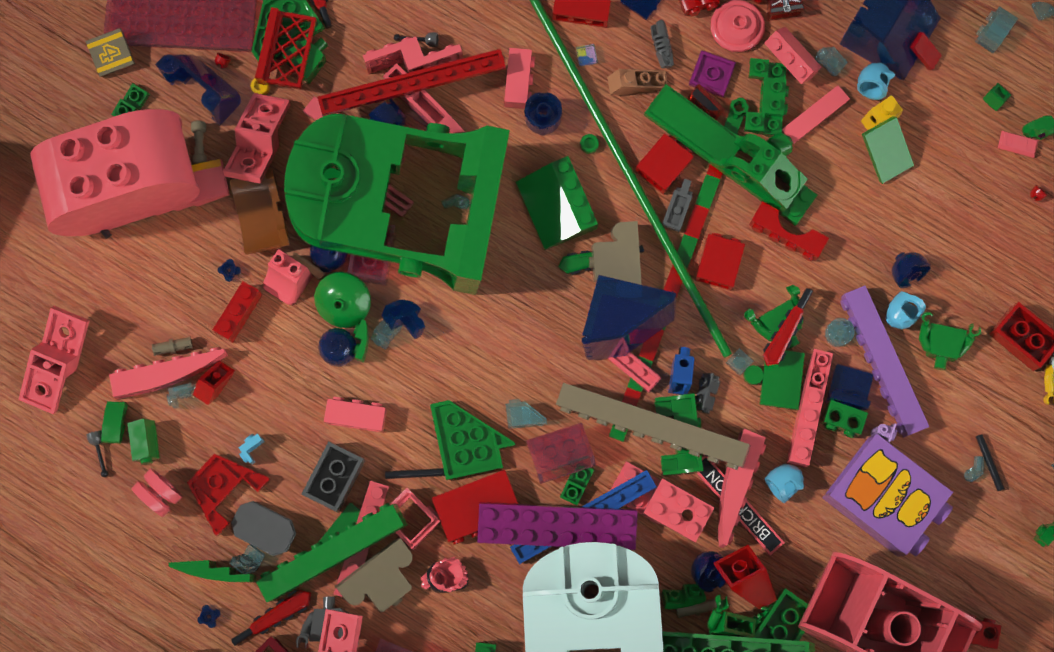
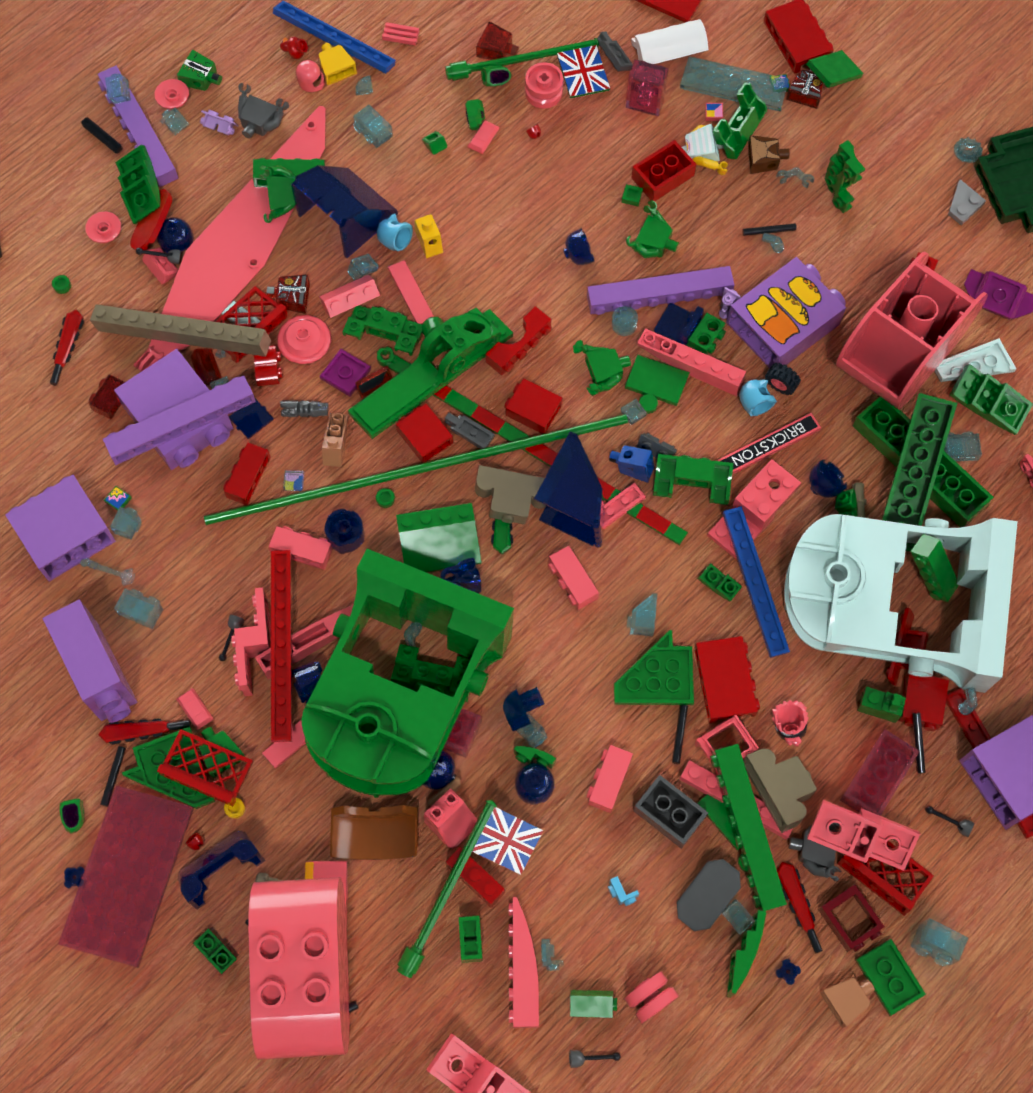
camera: 75 degrees left, 10 degrees down
(110, 52) = (151, 960): dark tan tile -> none
(113, 425) = (564, 1034): green slope -> none
(172, 346) = (495, 955): dark tan pin -> none
(179, 320) = (470, 939): none -> green brick
(213, 382) = (545, 918): red slope -> none
(216, 481) = (651, 937): red wing -> none
(229, 264) = (427, 873): clear blue plate -> none
(256, 138) = (294, 817): coral bracket -> none
(272, 317) = (495, 837): none -> flag
(344, 27) = (194, 709): none -> coral tile
(351, 294) = (478, 762): green dish -> none
(415, 220) = (412, 672): none -> green bracket
(520, 234) = (464, 575): none -> clear blue piece
(547, 338) = (572, 578): none -> coral brick
(555, 525) = (761, 606): magenta plate -> none
(561, 453) = (690, 587): clear pink brick -> none
(653, 425) = (681, 496): dark tan brick -> none
(733, 624) = (883, 469): green torso -> none
(736, 485) = (749, 438): coral slope -> none
(747, 576) = (840, 443): red slope -> none
(781, 340) = (623, 367): red sword -> none
(812, 505) = (782, 378): none -> black wheel
(888, 149) = (463, 237): tile -> none
(902, 313) = (620, 264): medium azure piece -> none
(925, 51) = (377, 185): red tile -> none
(989, 310) = (632, 195): none -> green plate

